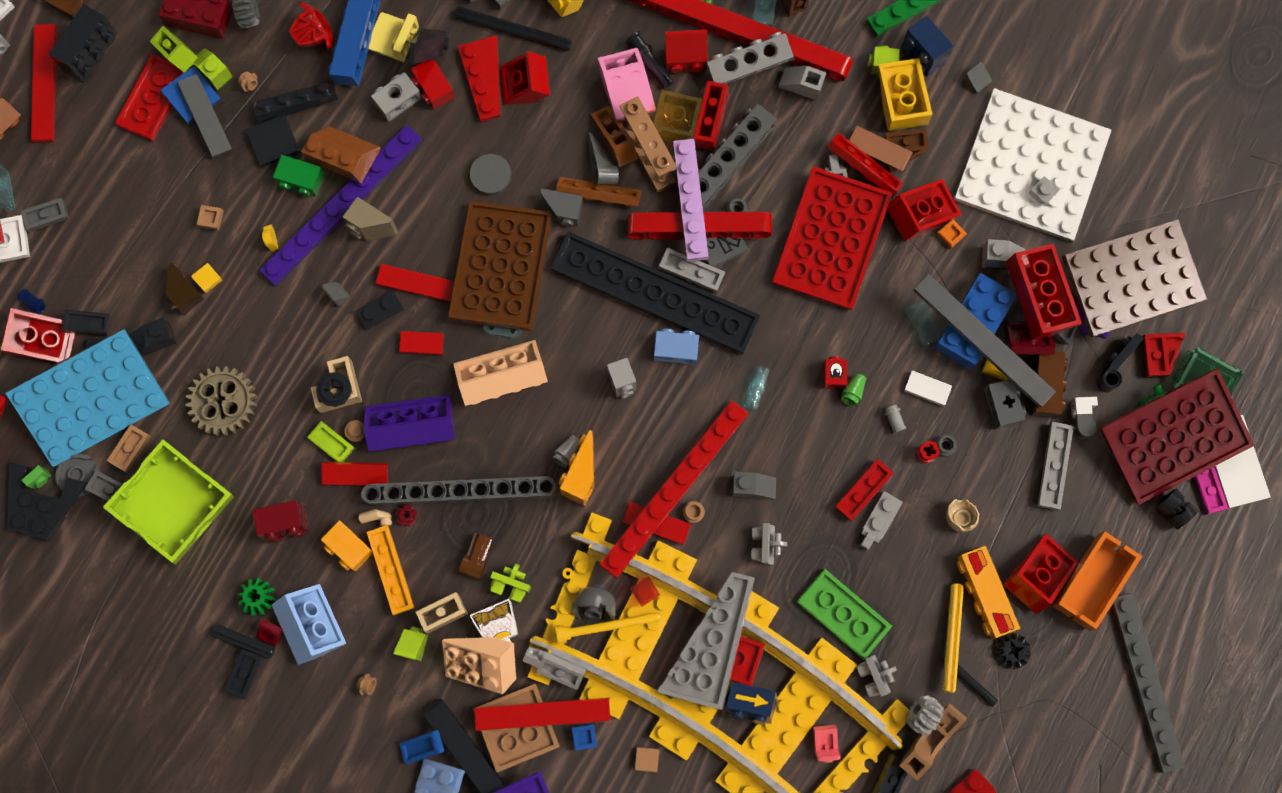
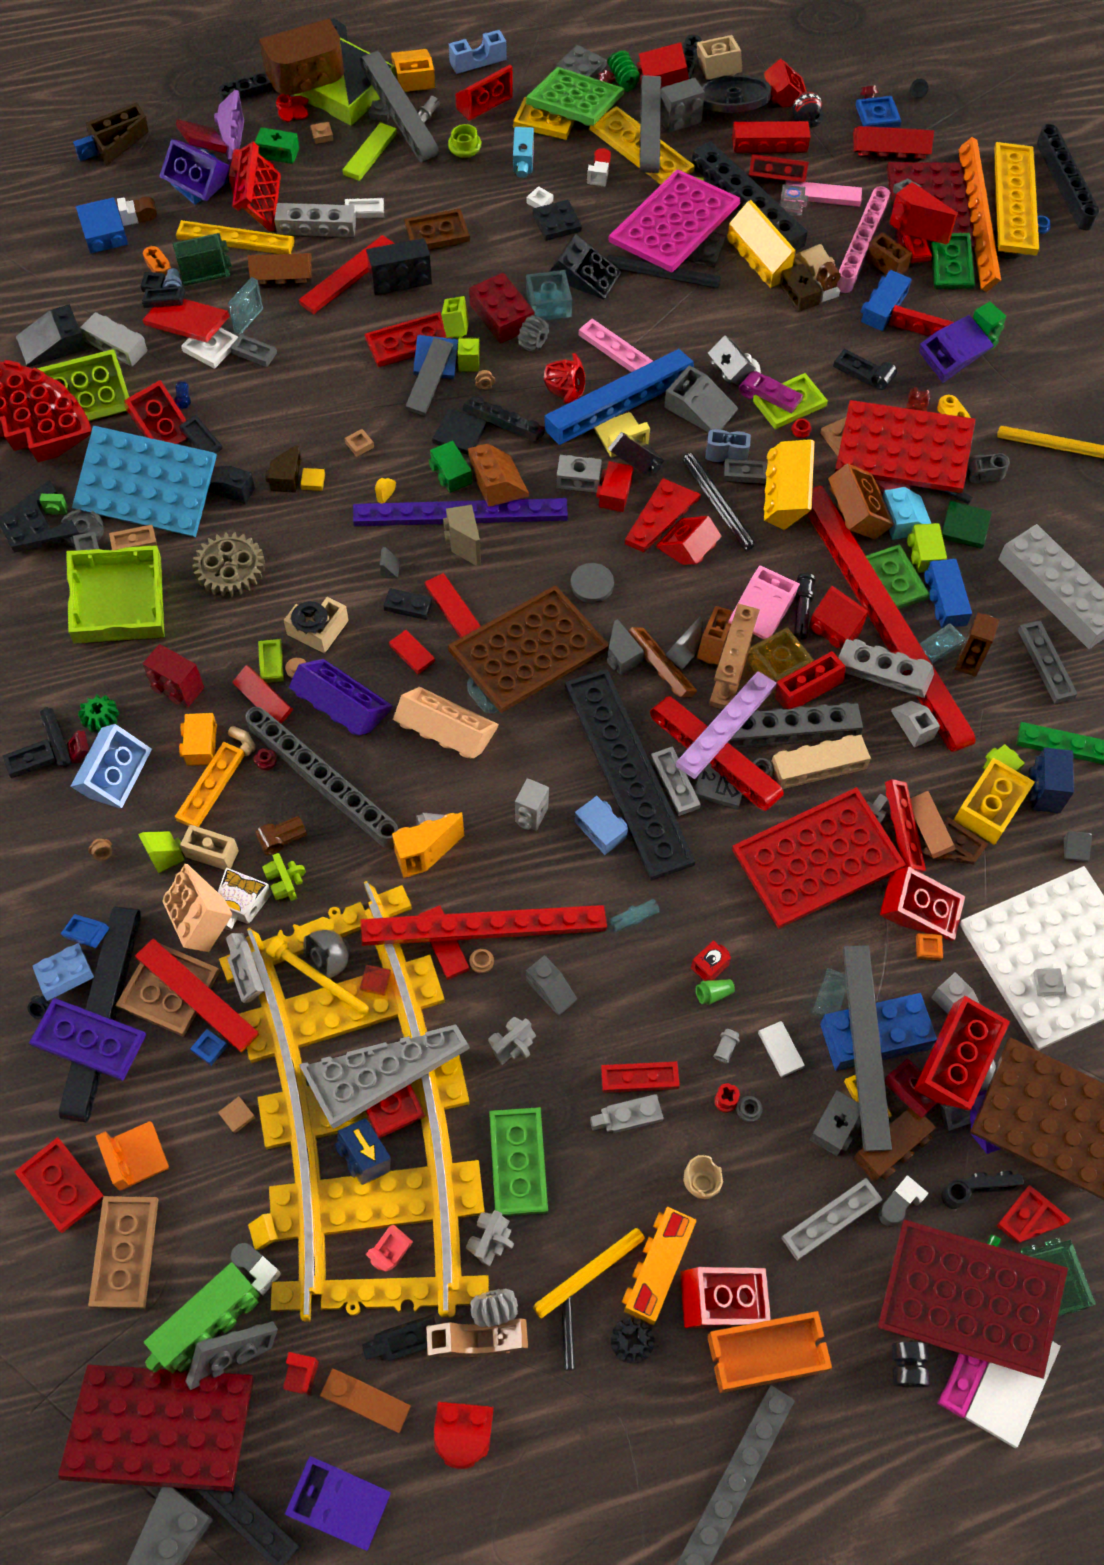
camera: 45 degrees right, 15 degrees down
(770, 167) = (820, 761): none -> tan brick

